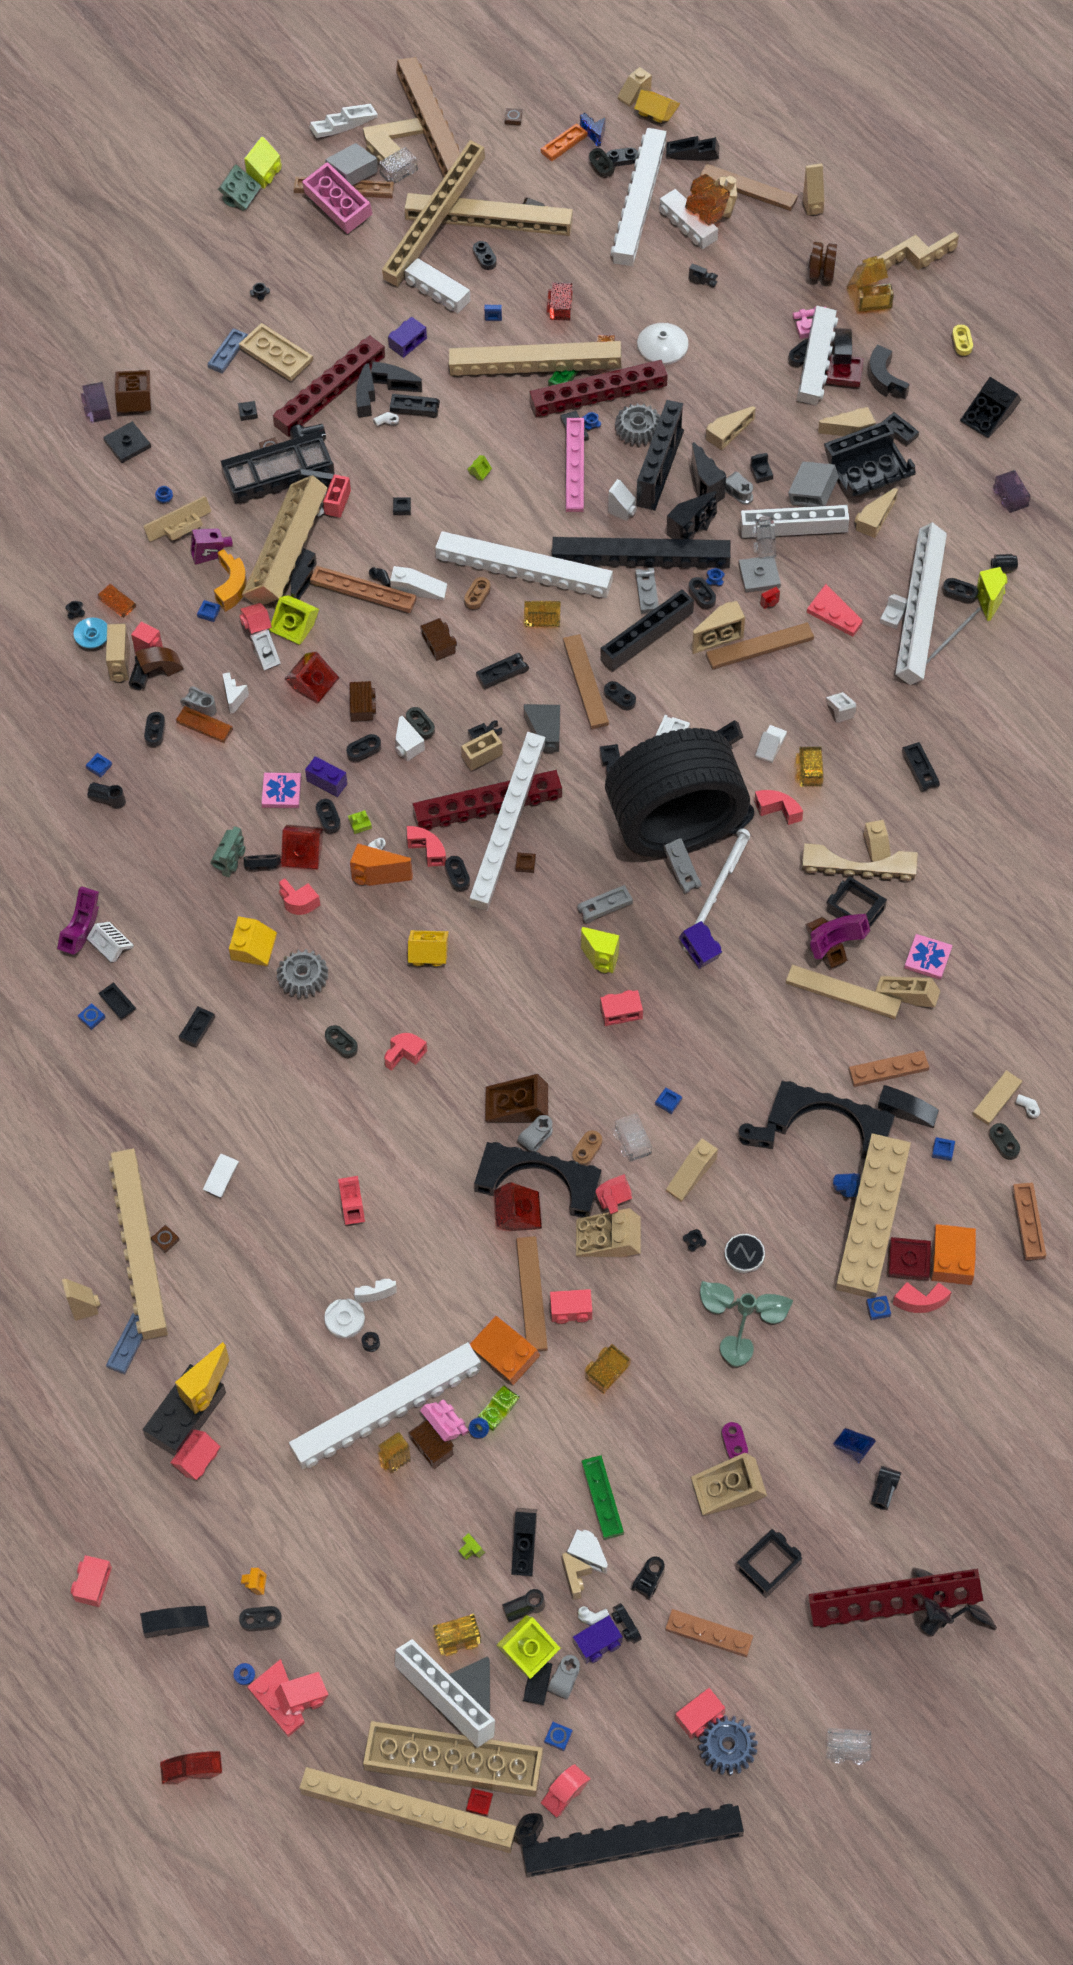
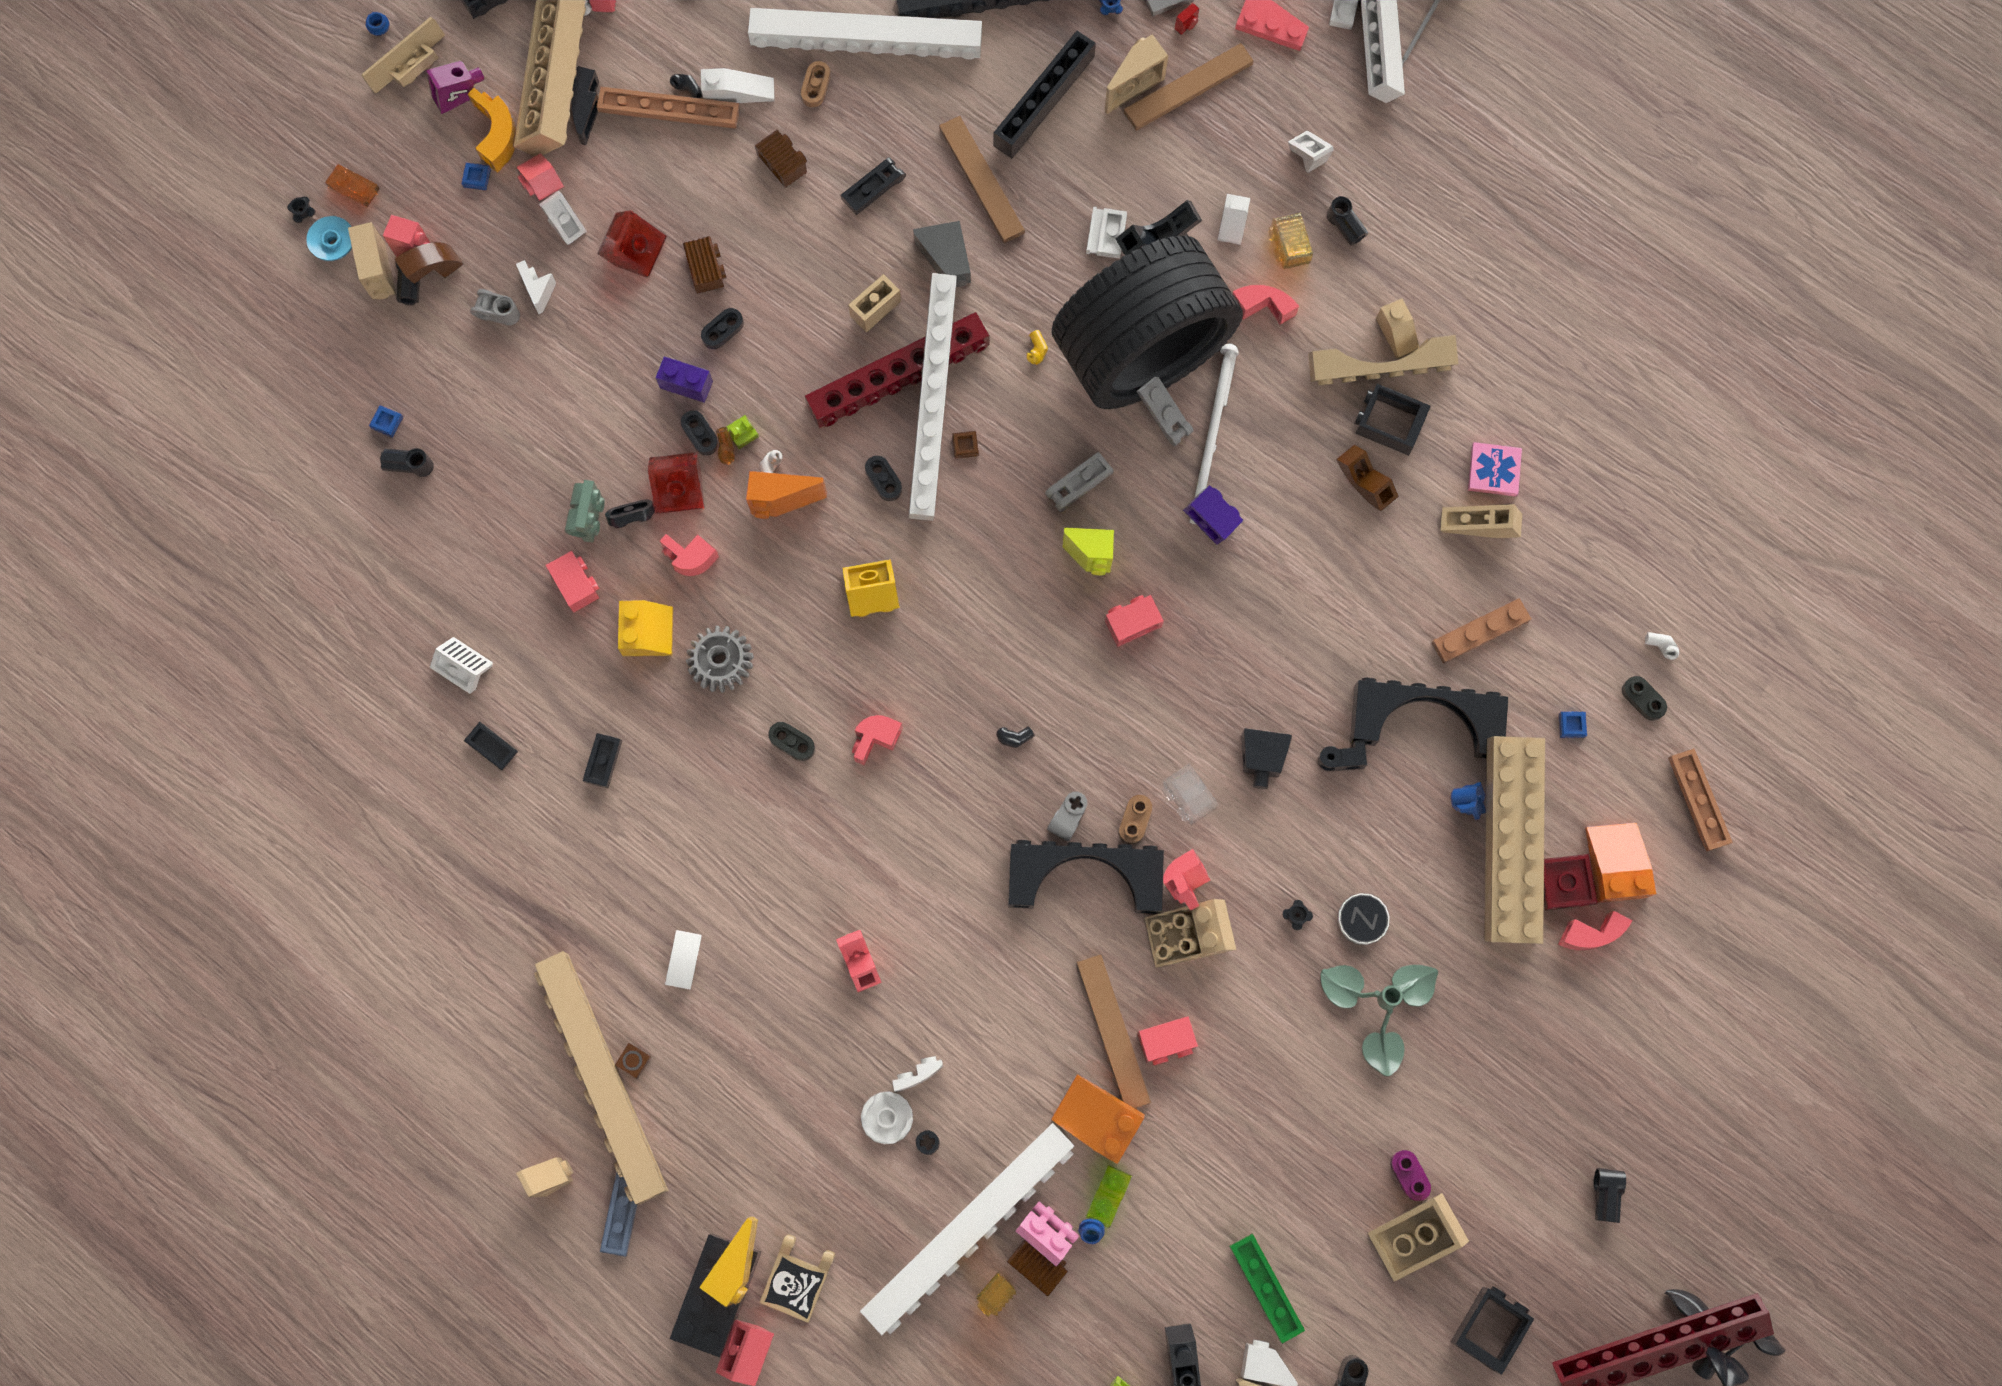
camera: 15 degrees left, 15 degrees up
(85, 913) = (417, 651): magenta arch -> none
(91, 1016) = (462, 774): blue tile -> none
(154, 730) = (446, 358): black plate -> none
(204, 724) = (509, 336): clear orange tile -> none
(207, 899) = (572, 581): none -> coral brick
(245, 1419) = (795, 1283): none -> flag
(281, 790) = (630, 408): bright pink tile -> none
(293, 619) = (588, 166): neon yellow slope -> none
(345, 829) = (725, 448): none -> clear orange arm
(408, 740) = (776, 307): white slope -> none
(420, 724) = (787, 280): pearl dark grey plate -> none
(422, 838) = (848, 453): coral brick -> none
(481, 729) = (867, 276): black plate -> none
(509, 1073) = (1013, 738): none -> black arm
(517, 1100) = (1033, 775): reddish brown slope -> none
(517, 1208) = (1069, 922): clear red slope -> none
(542, 613) = (906, 97): clear yellow brick -> none
(599, 806) = (1039, 350): none -> yellow arm
(607, 1368) = (1232, 1114): clear yellow brick -> none
(609, 755) = (1039, 277): black plate -> none
(619, 694) = (1028, 190): black plate -> none
(646, 590) = (1029, 38): light grey plate -> none
(668, 1100) = (1220, 732): blue tile -> none
(692, 1169) = (1273, 822): tan slope -> none
(697, 1120) = (1264, 754): none -> black torso
(702, 594) = (1102, 28): black plate -> none
(837, 931) = (1381, 462): magenta arch -> none
(843, 992) = (1402, 539): tan tile -> none
(854, 1443) = (1561, 1148): clear blue slope -> none
(856, 760) = (1347, 222): none -> black piece
(878, 1307) = (1543, 955): blue tile -> none
(907, 1106) = (1517, 679): black slope -> none
(920, 766) = (1426, 213): black plate -> none
(997, 1098) = (1622, 641): tan tile -> none

